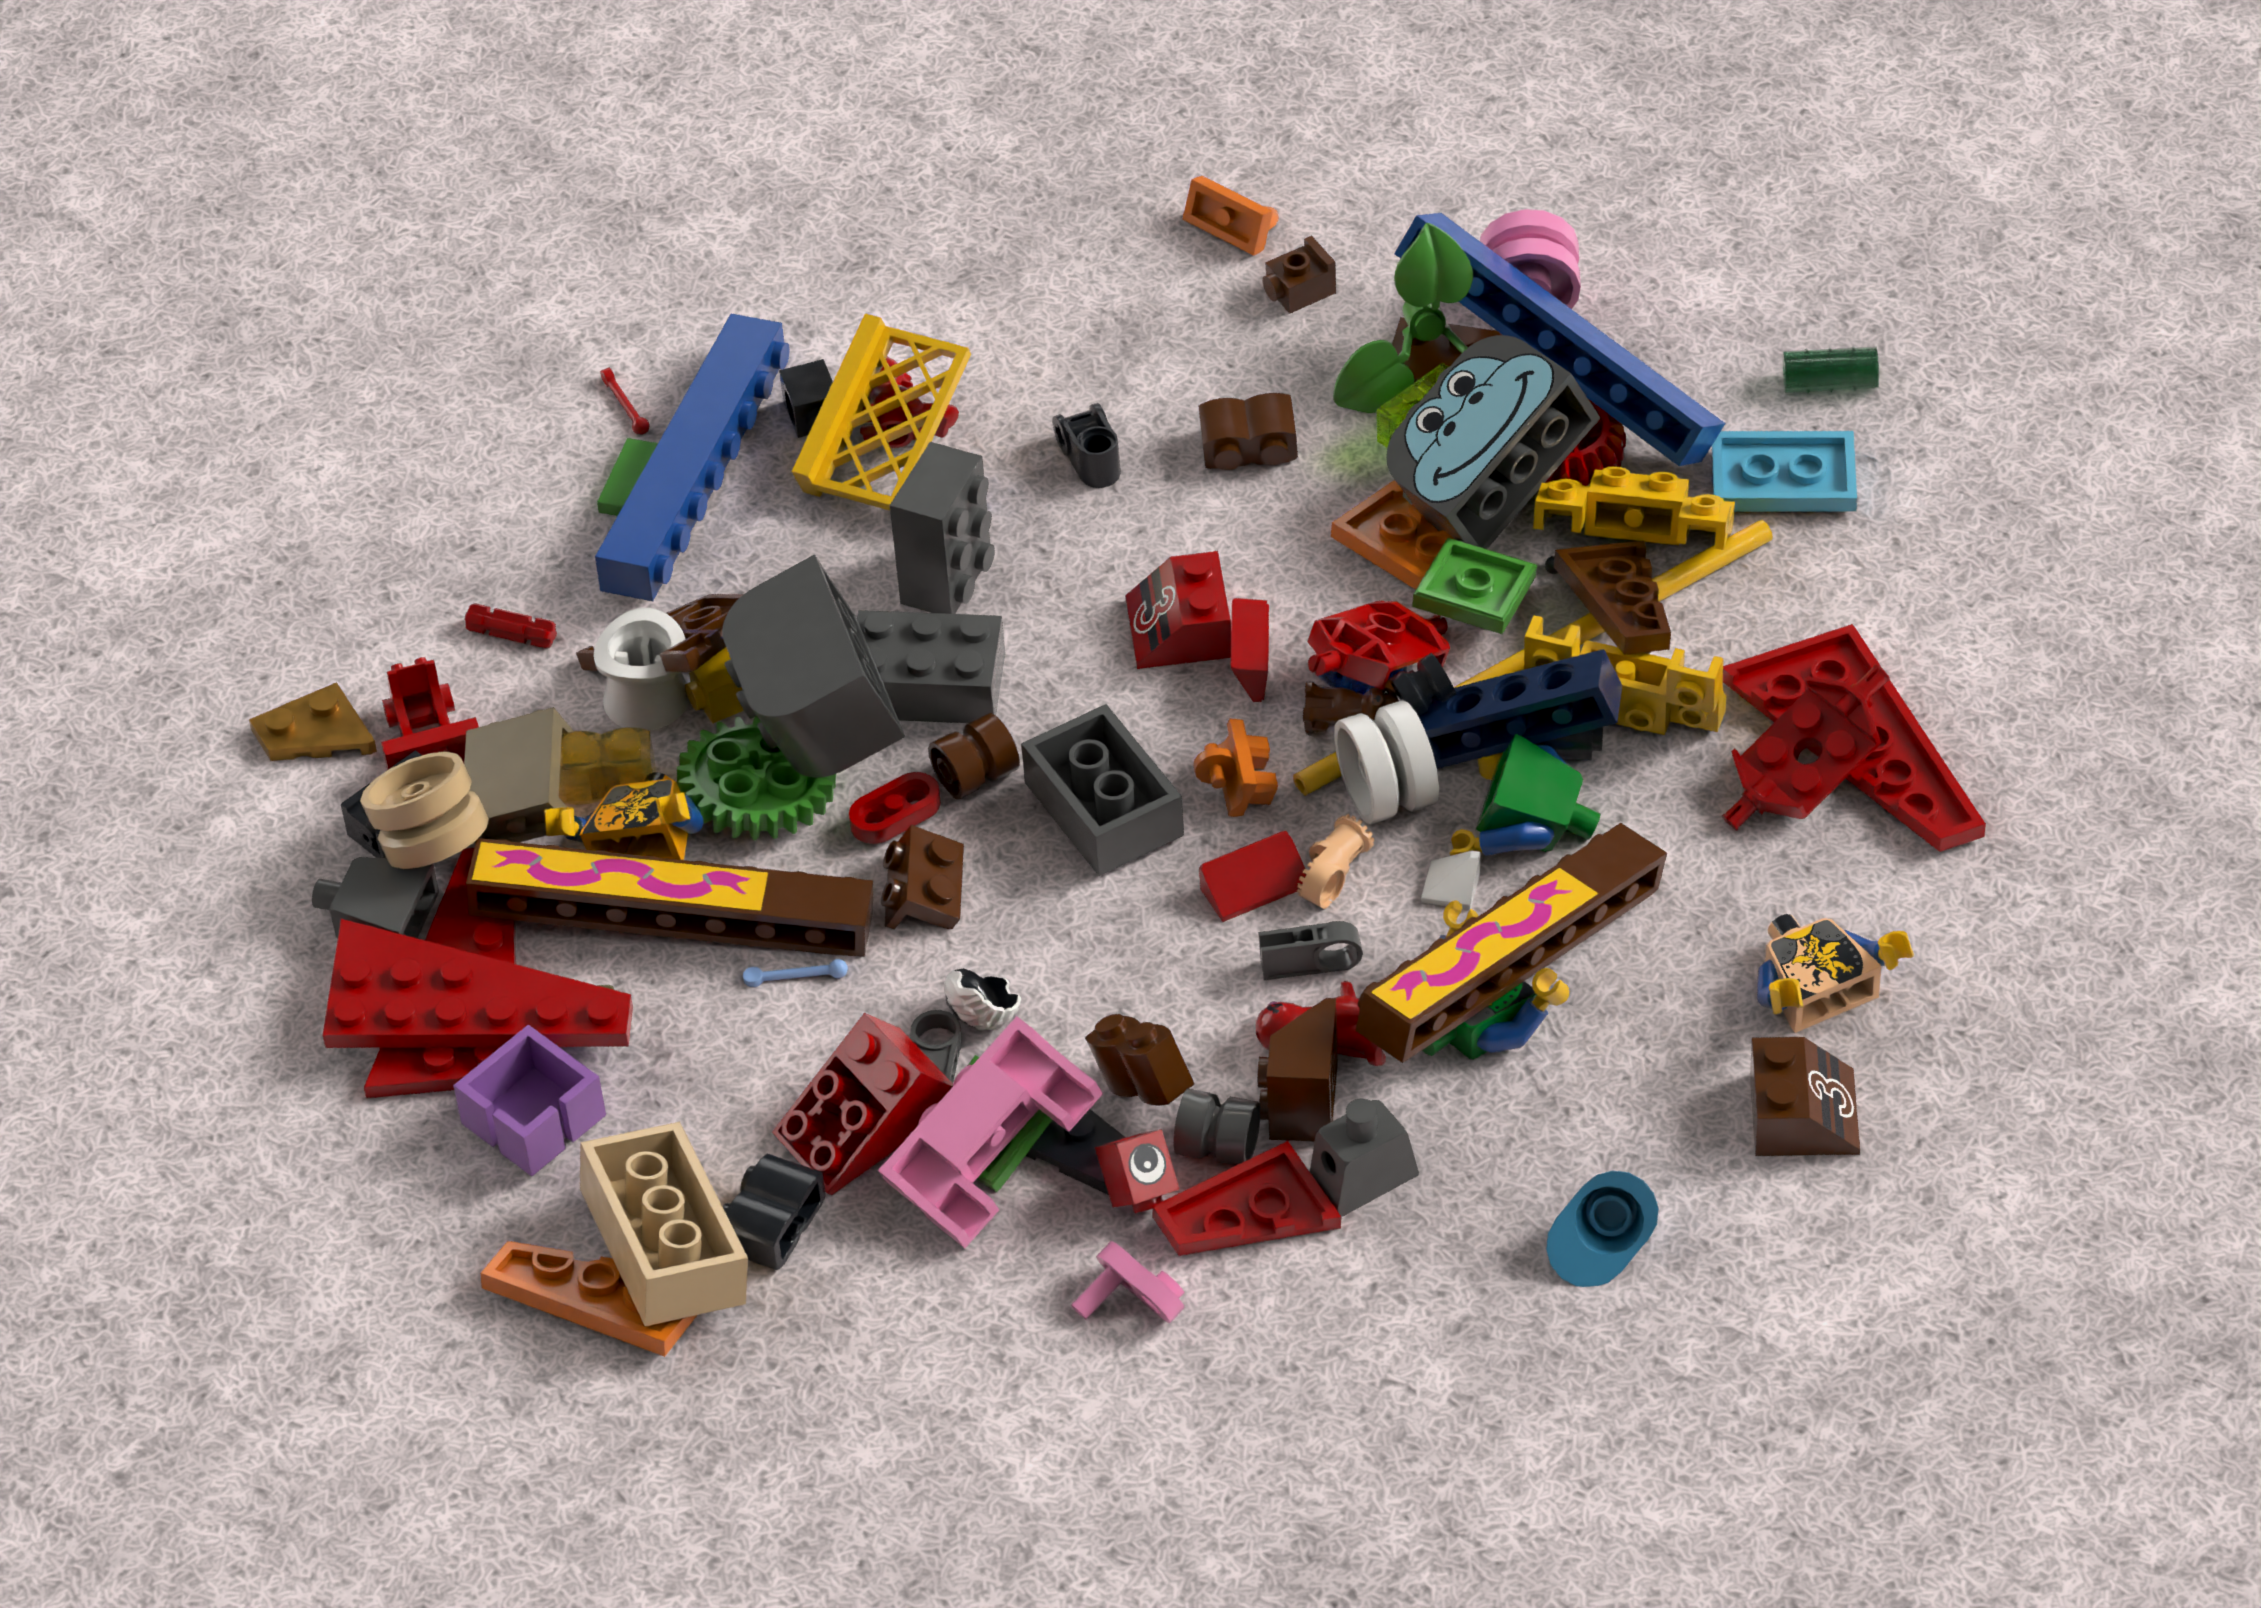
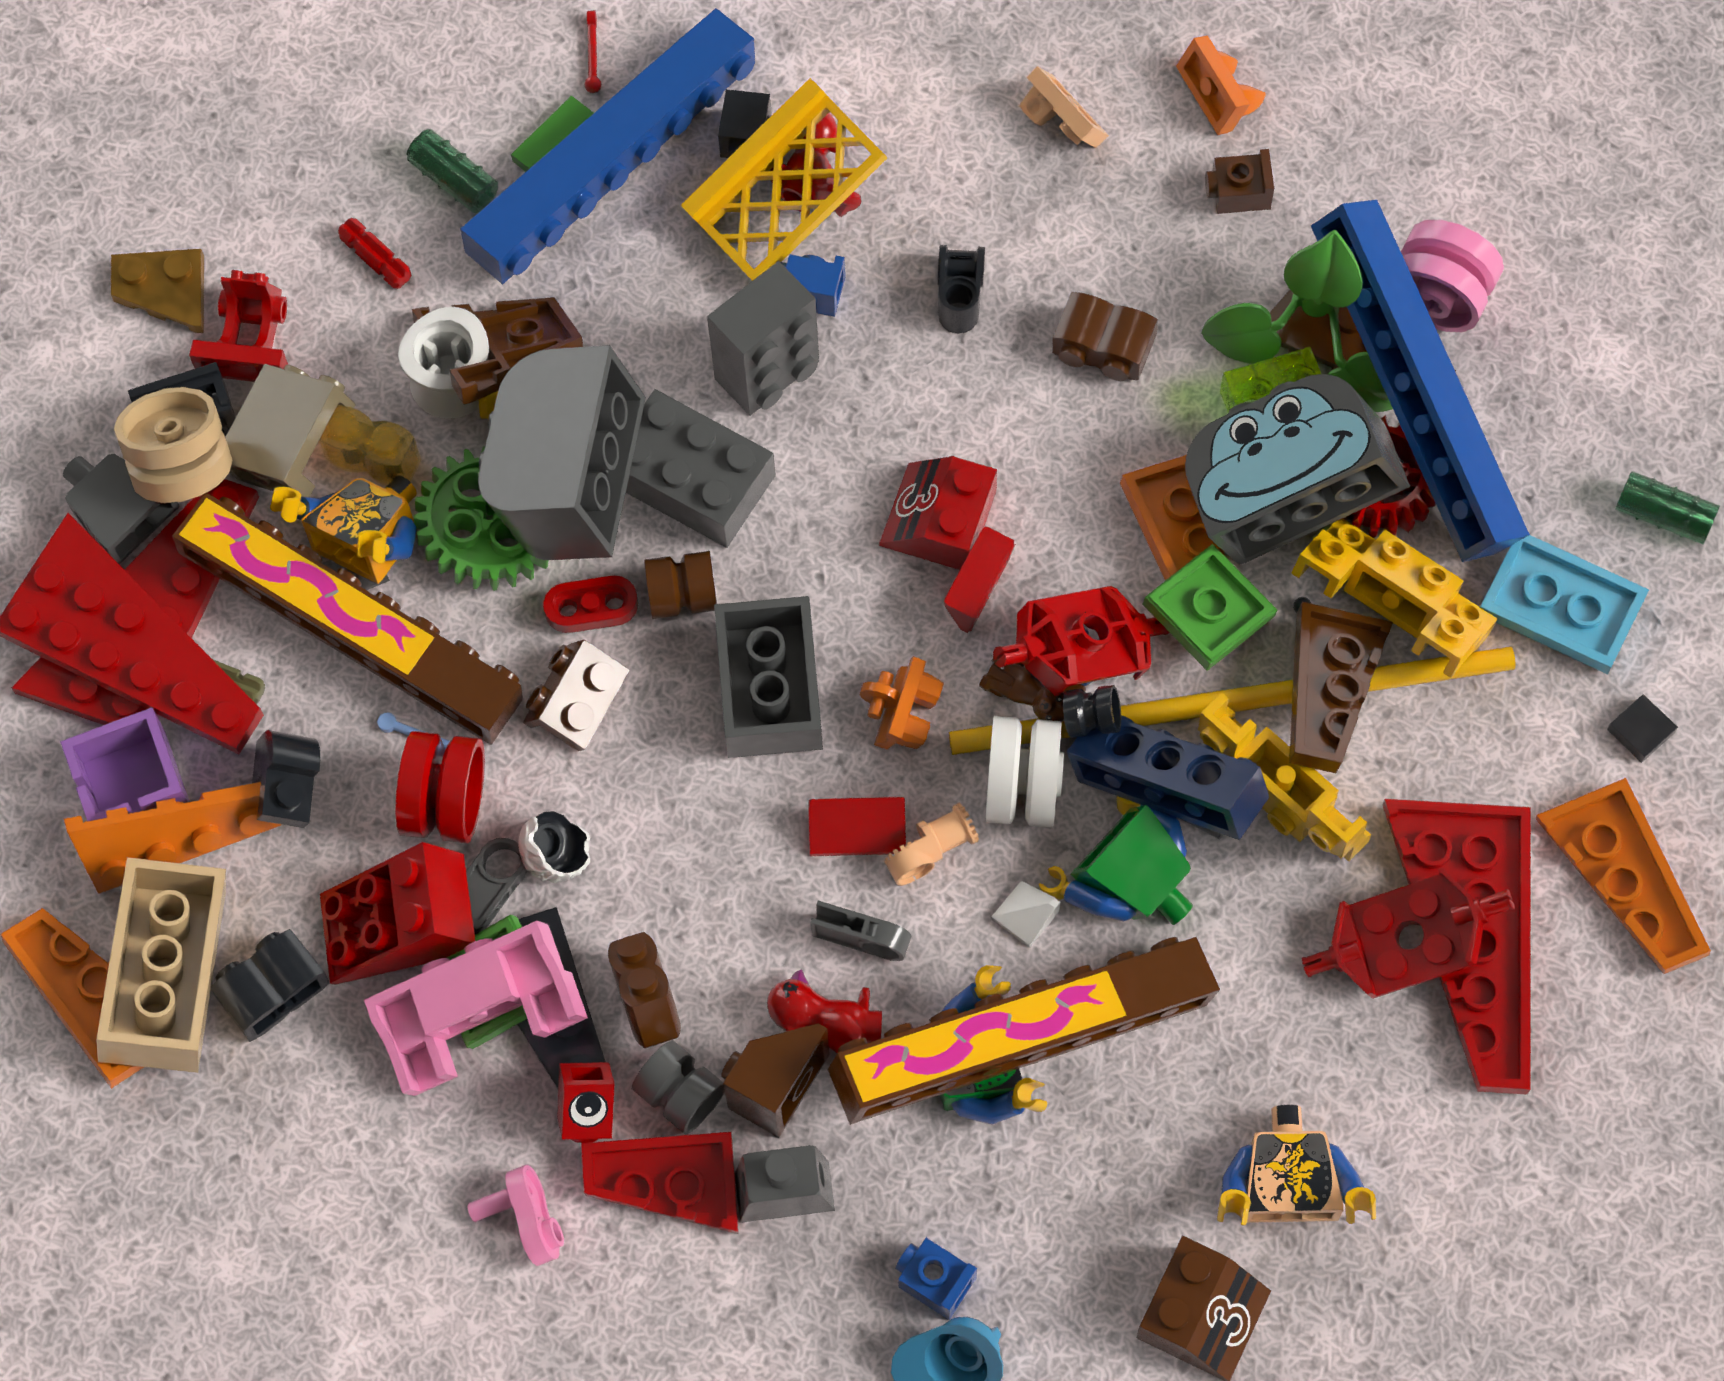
camera: 25 degrees right, 20 degrees up
(548, 533) = (452, 170): none -> clear green axle
(550, 1146) = (165, 834): none -> orange wing
(686, 1035) = (286, 773): none -> black brick
(846, 984) = (440, 786): none -> red wheel
(1084, 276) = (1051, 98): none -> light nougat hinge
(1545, 1175) = (940, 1294): none -> blue brick
(1911, 537) = (1642, 728): none -> black tile
(1962, 637) = (1624, 864): none -> orange wing

